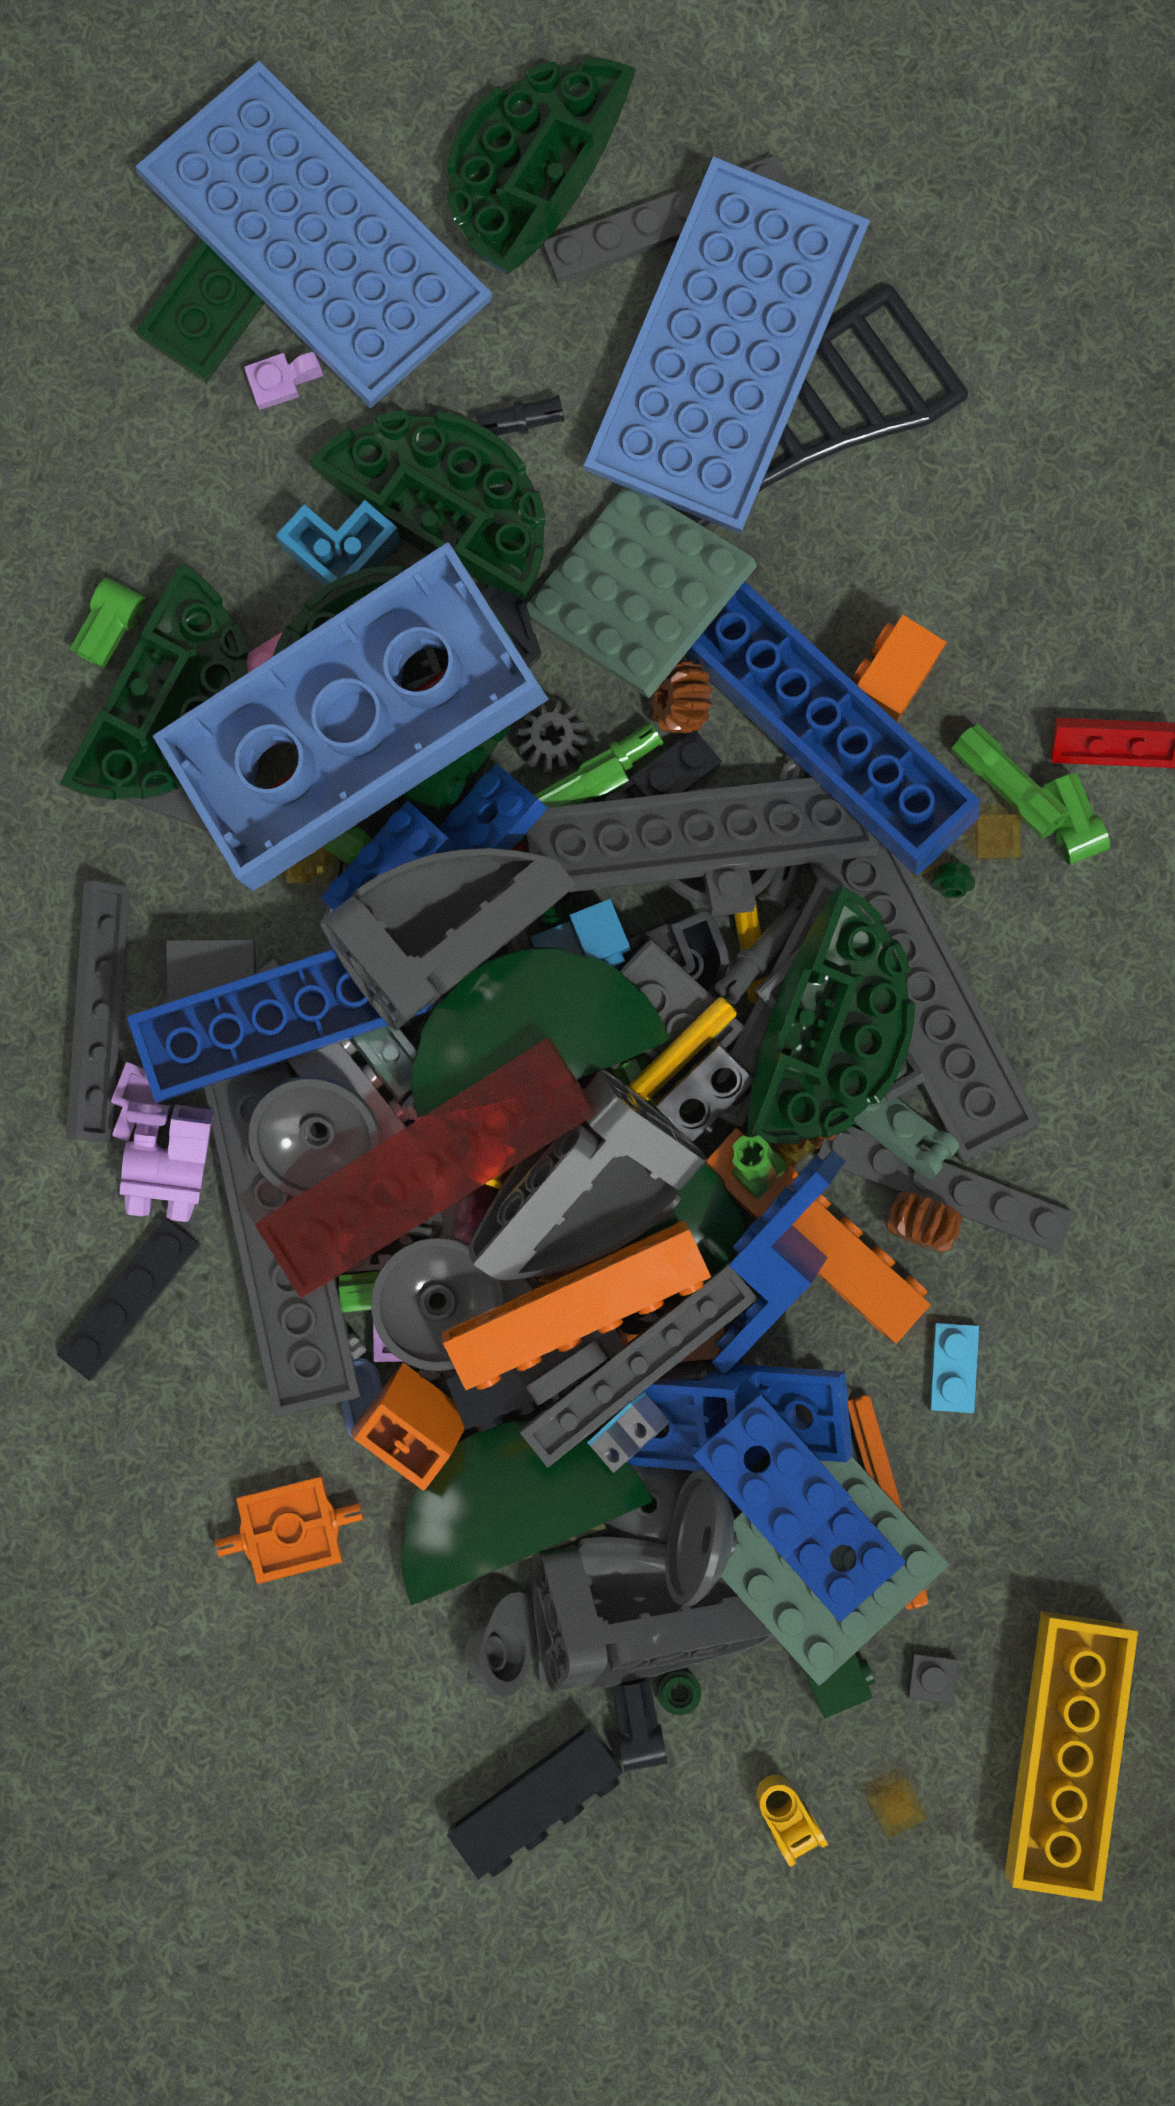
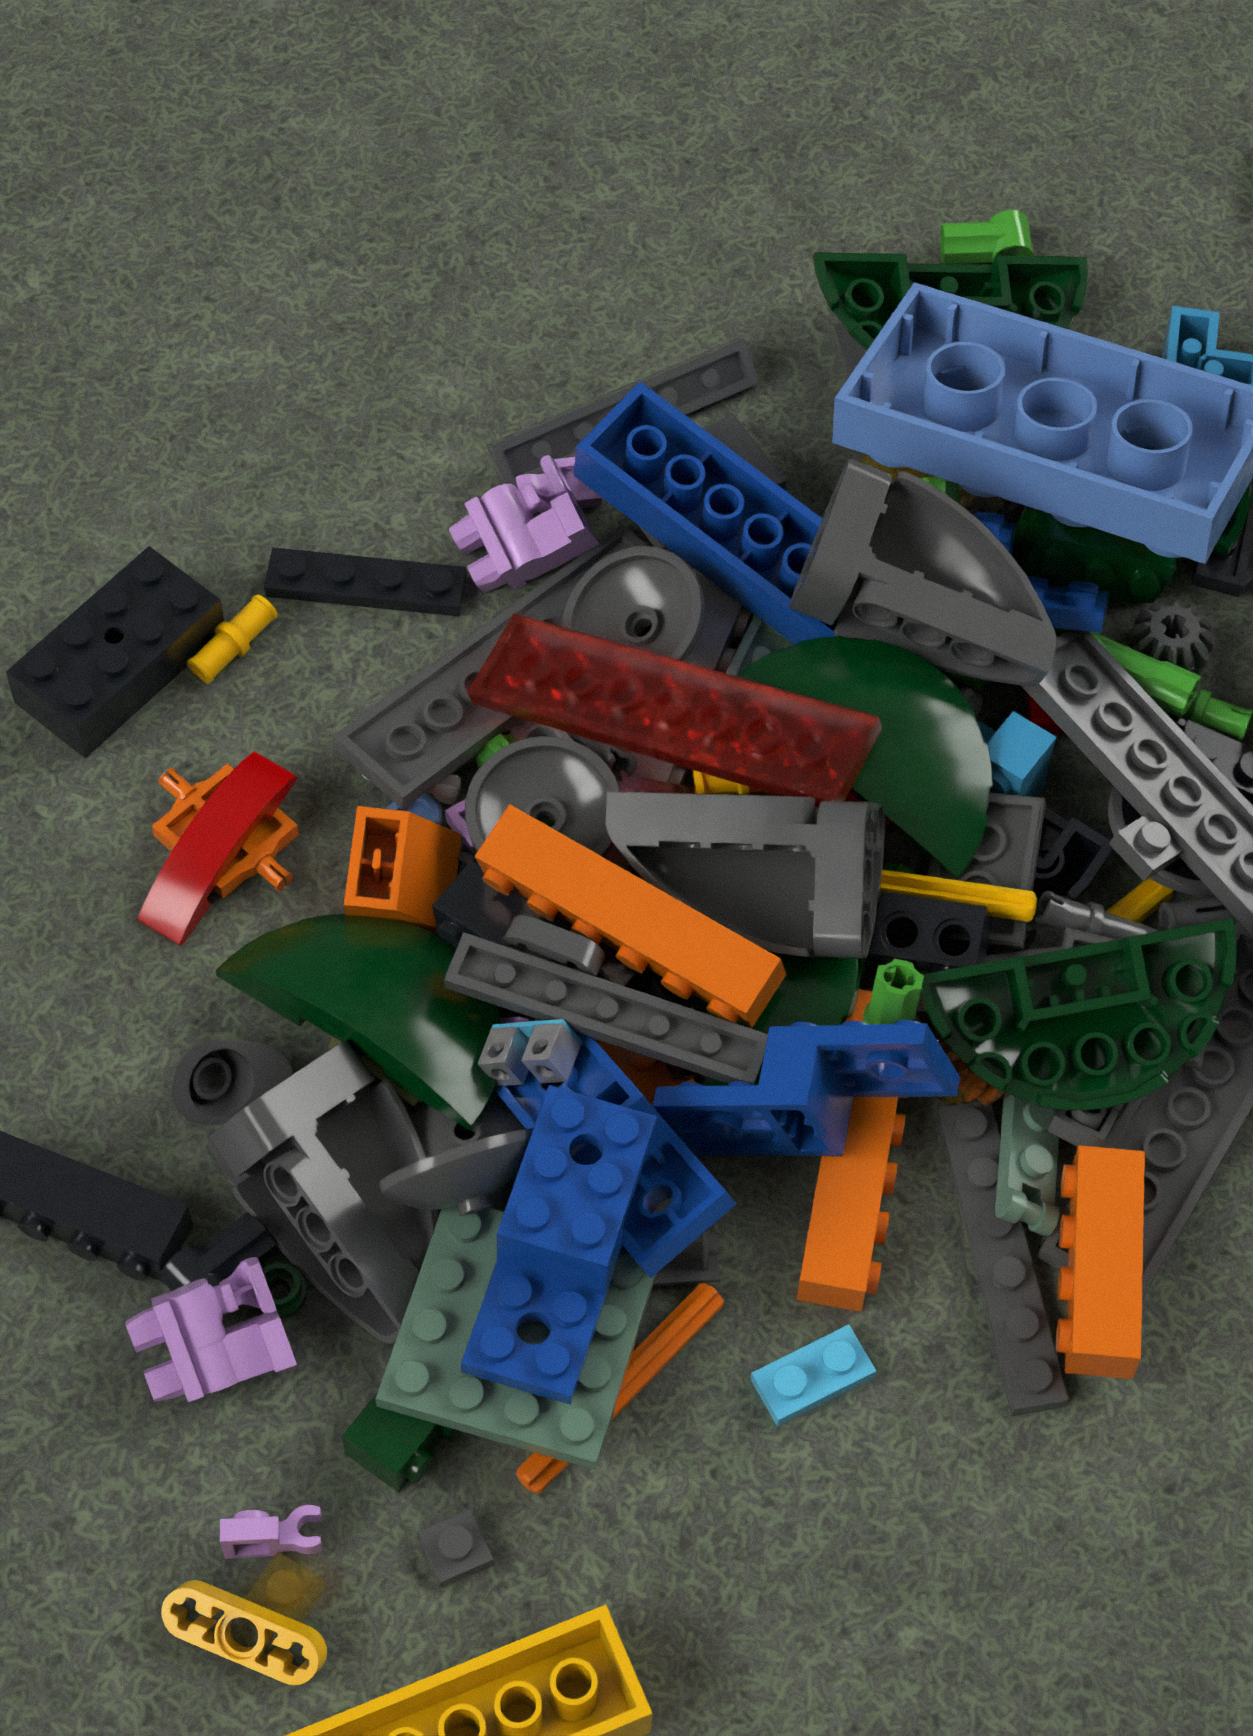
camera: 55 degrees right, 25 degrees down
(106, 1567) = (115, 651): none -> black brick
(122, 1431) = (232, 638): none -> yellow pin
(302, 1545) = (211, 844): none -> red slope
(699, 1768) = (201, 1349): none -> lavender hips
(791, 1824) = (200, 1487): yellow piece -> none
(850, 1807) = (258, 1535): none -> lavender plate
(880, 1862) = (275, 1664): none -> yellow beam
(923, 1221) = (948, 1239): dark orange gear -> none
(1008, 1132) = (1103, 1262): none -> orange brick

